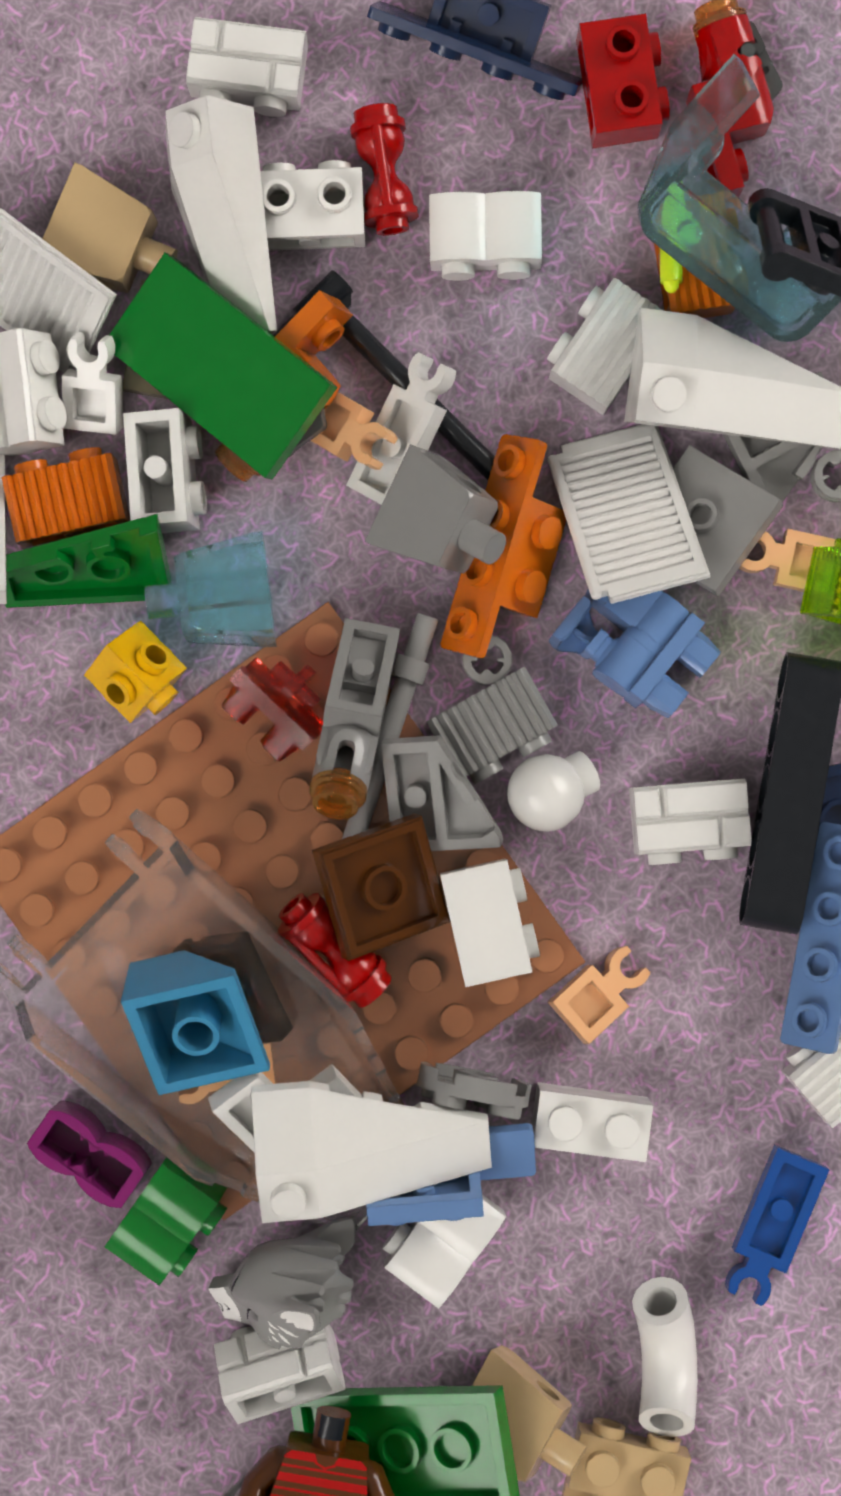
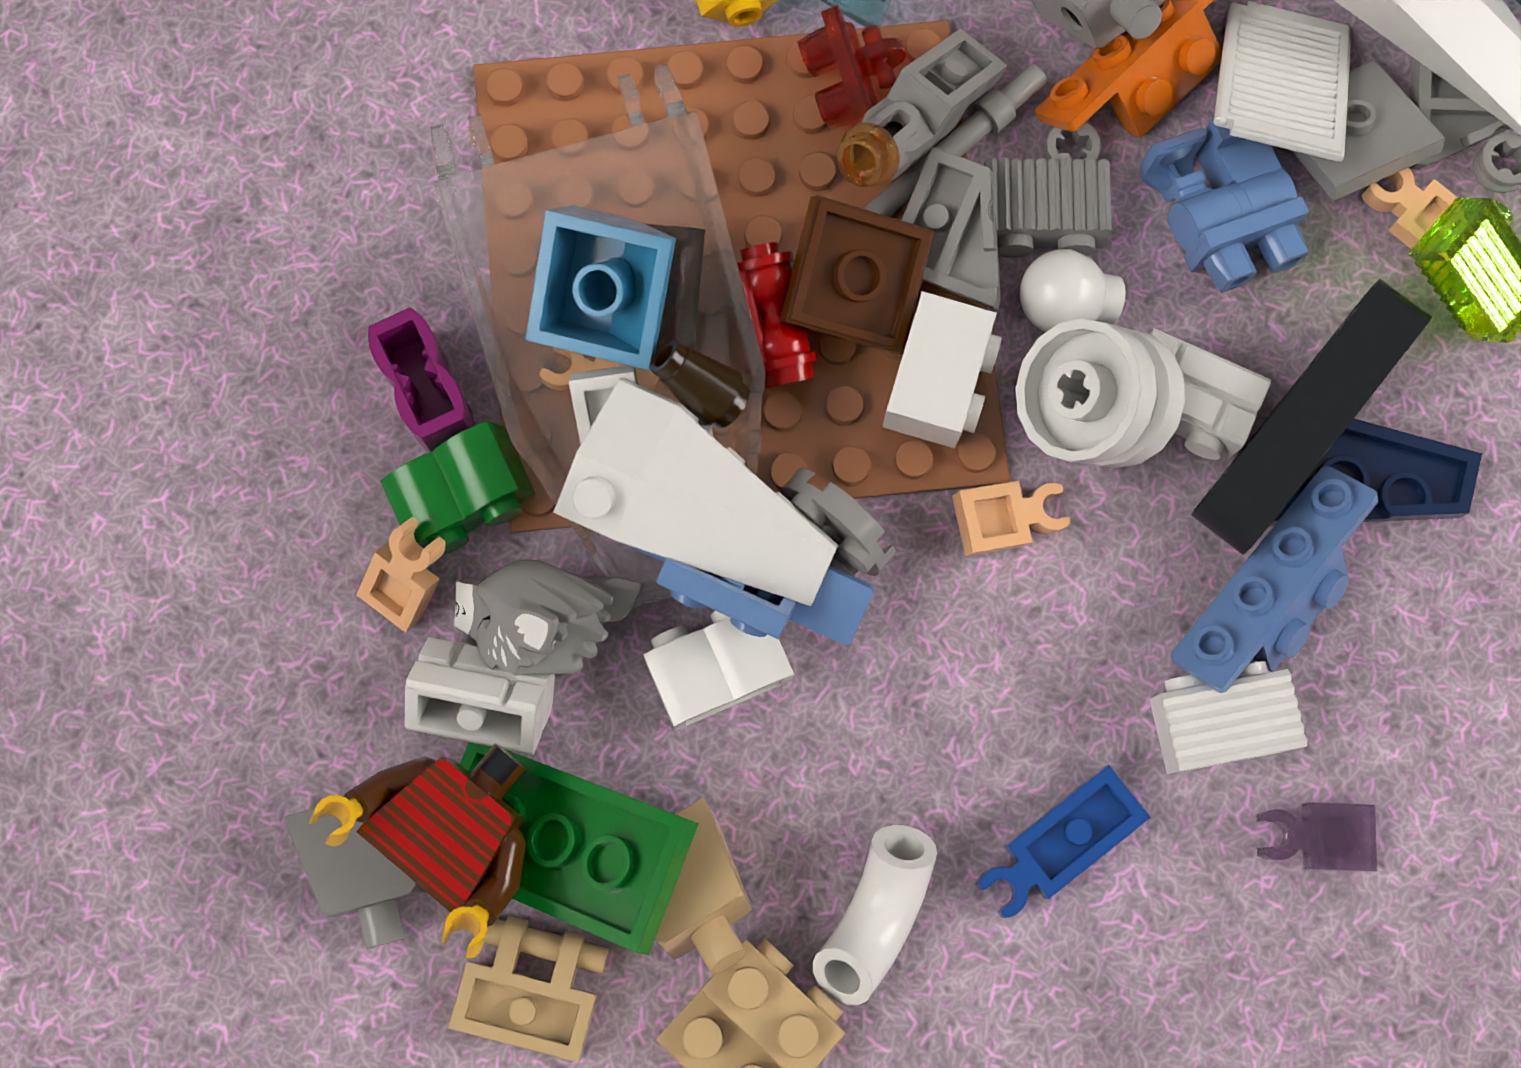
camera: 25 degrees right, 10 degrees down
(165, 1310) = (398, 577): none -> light nougat plate
(315, 1055) = (701, 384): none -> dark brown cone
(592, 1122) = (932, 630): white brick -> none
(620, 873) = (1099, 394): none -> white wheel

